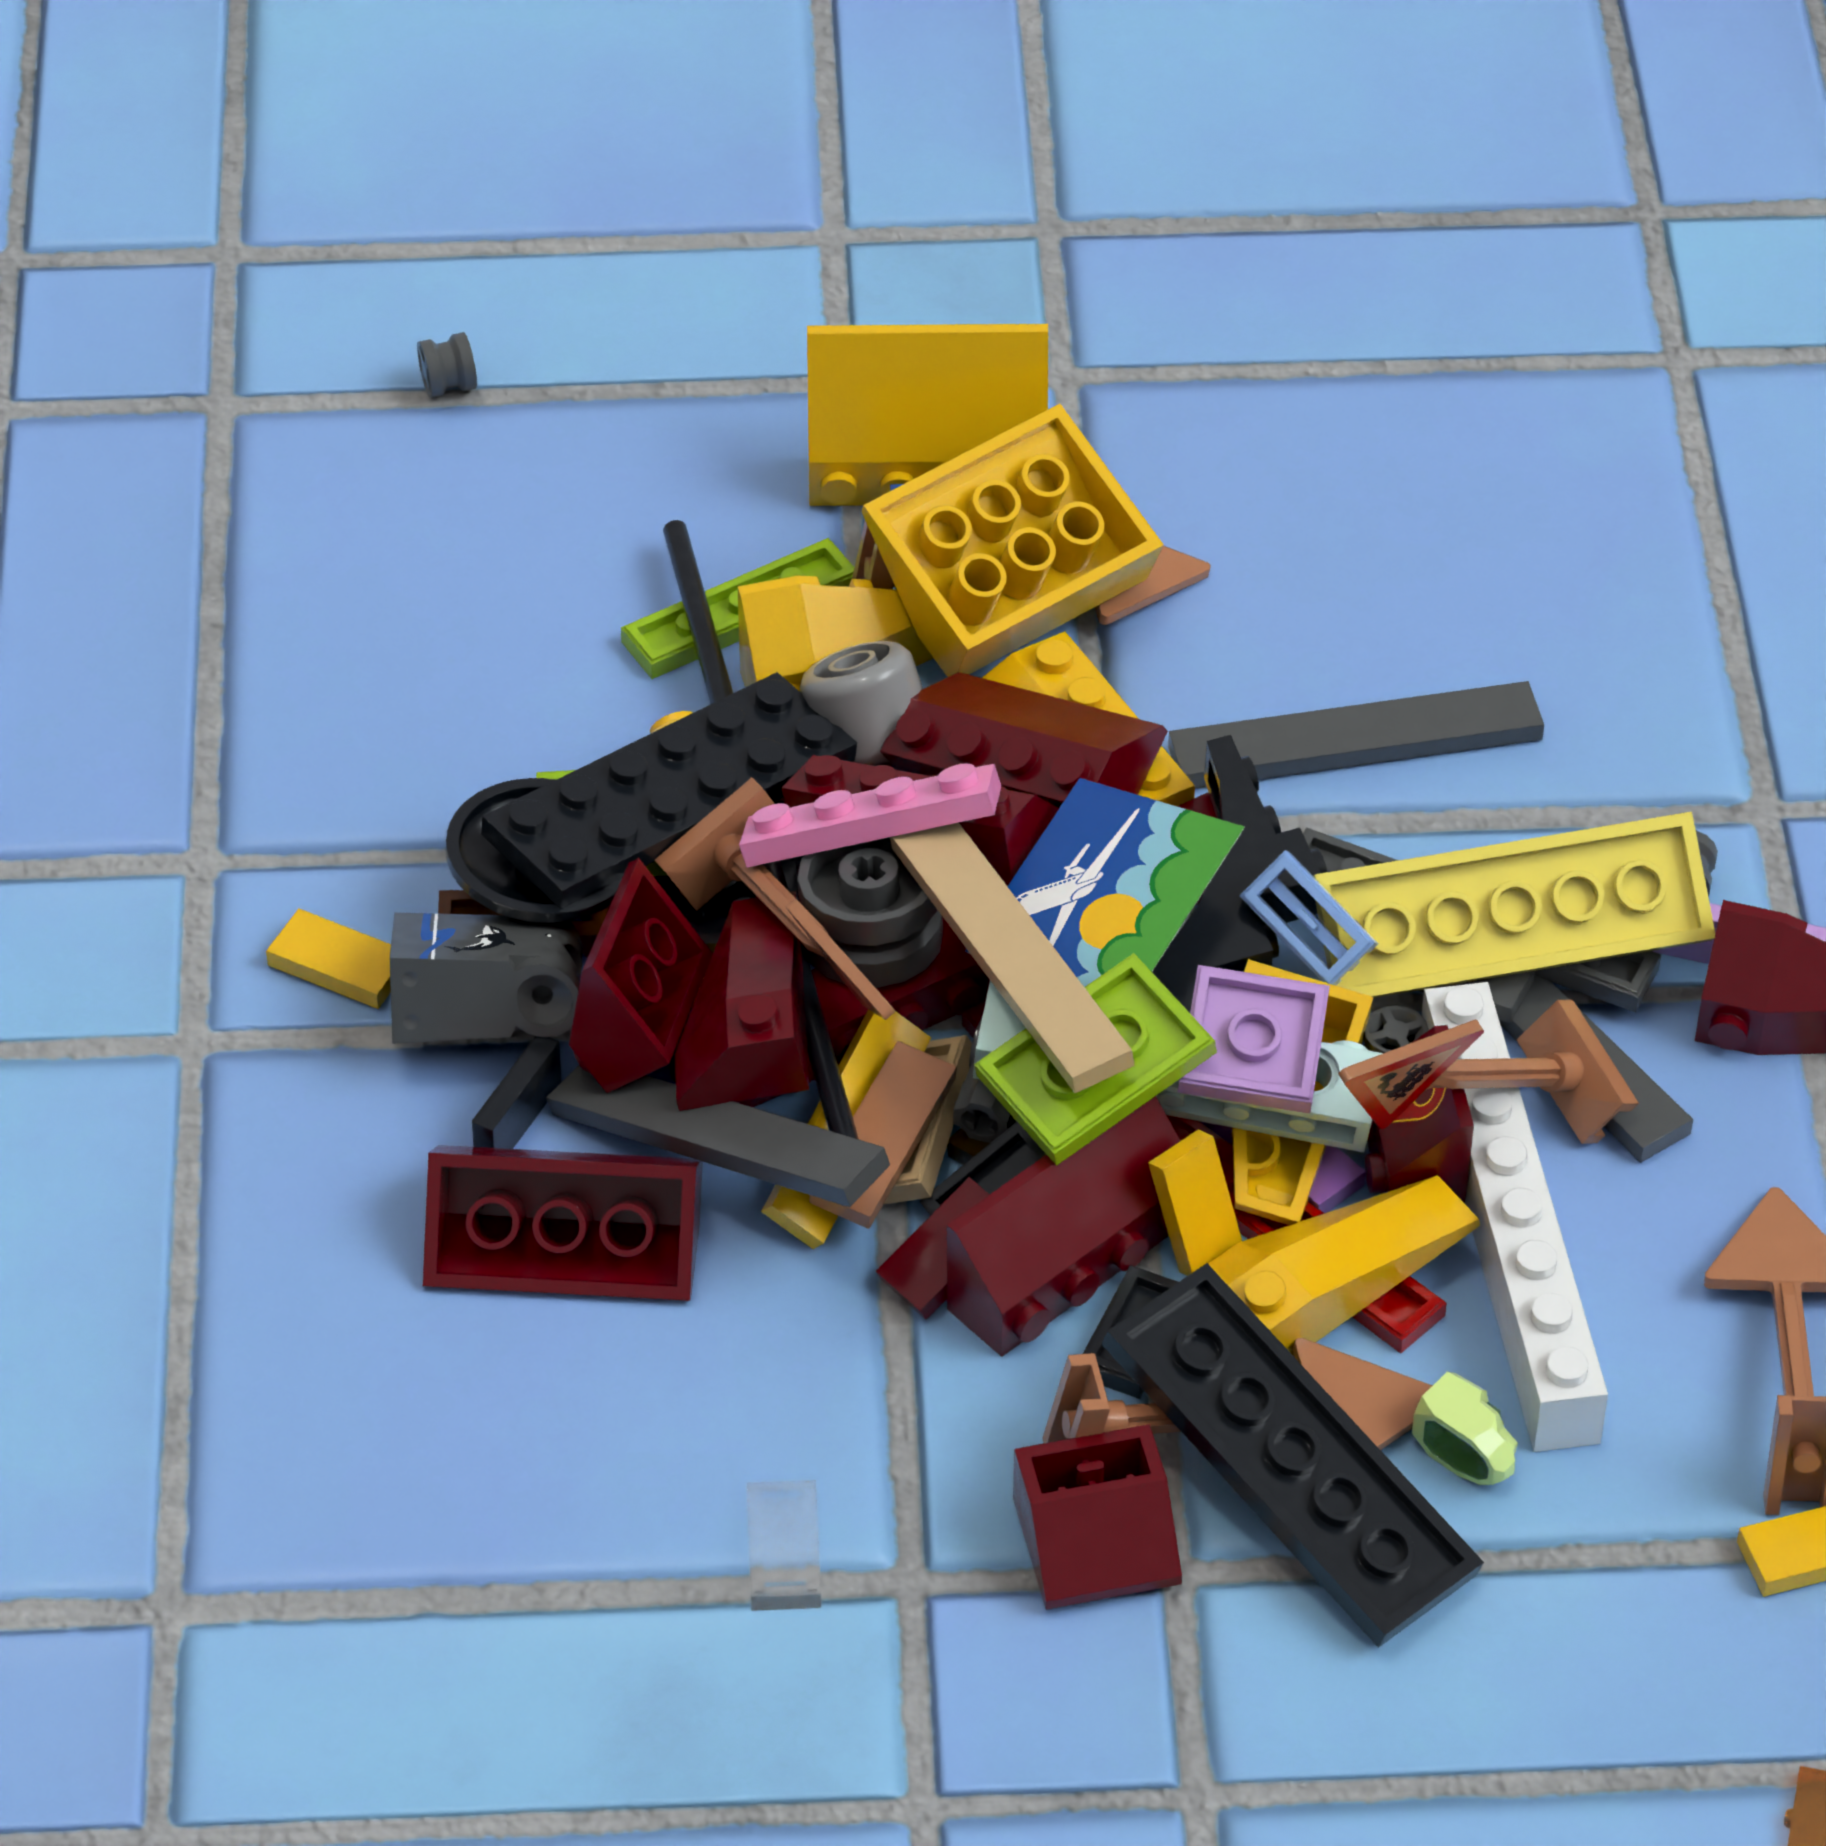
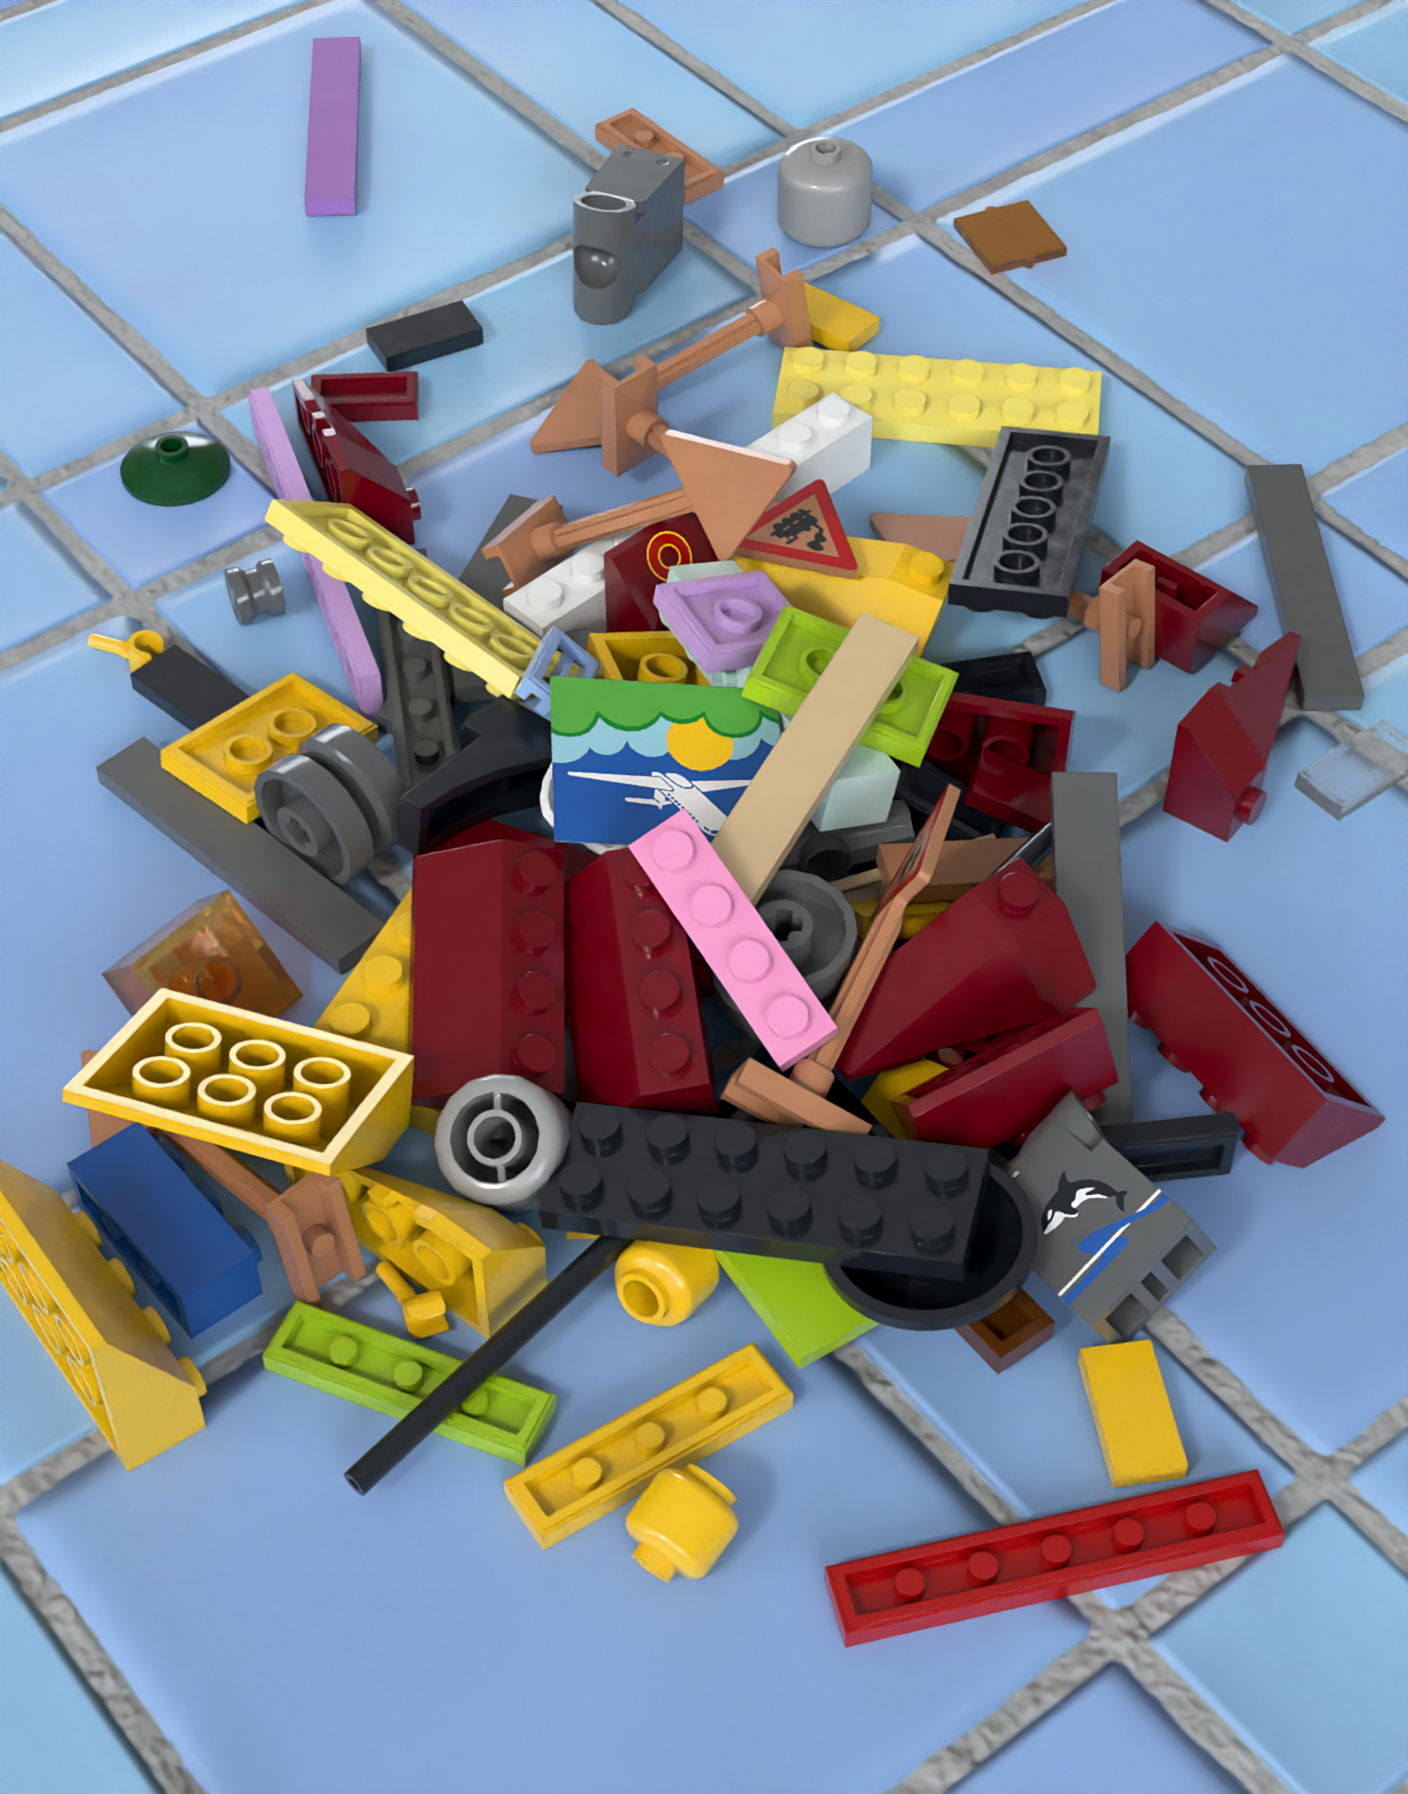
camera: 125 degrees left, 0 degrees up
(279, 858) = (1052, 1557): none -> red tile
(484, 666) = (682, 1523): none -> yellow head
(571, 688) = (662, 1433): none -> yellow tile
(860, 1426) = (1228, 744): none -> dark red wedge
(1059, 1679) = (1303, 587): none -> dark grey tile
(1211, 638) = (206, 954): none -> clear orange slope
(1320, 760) = (332, 802): none -> dark grey wheel
(1394, 1211) = (791, 533): none -> nougat piece
(1458, 781) = (240, 743): none -> yellow tile
(1464, 1431) = (901, 479): yellowish green rock -> none
(1585, 786) = (185, 688): none -> black tile
(1586, 1564) = (940, 397): none -> light yellow plate
(1673, 772) = (138, 649): none -> yellow hand

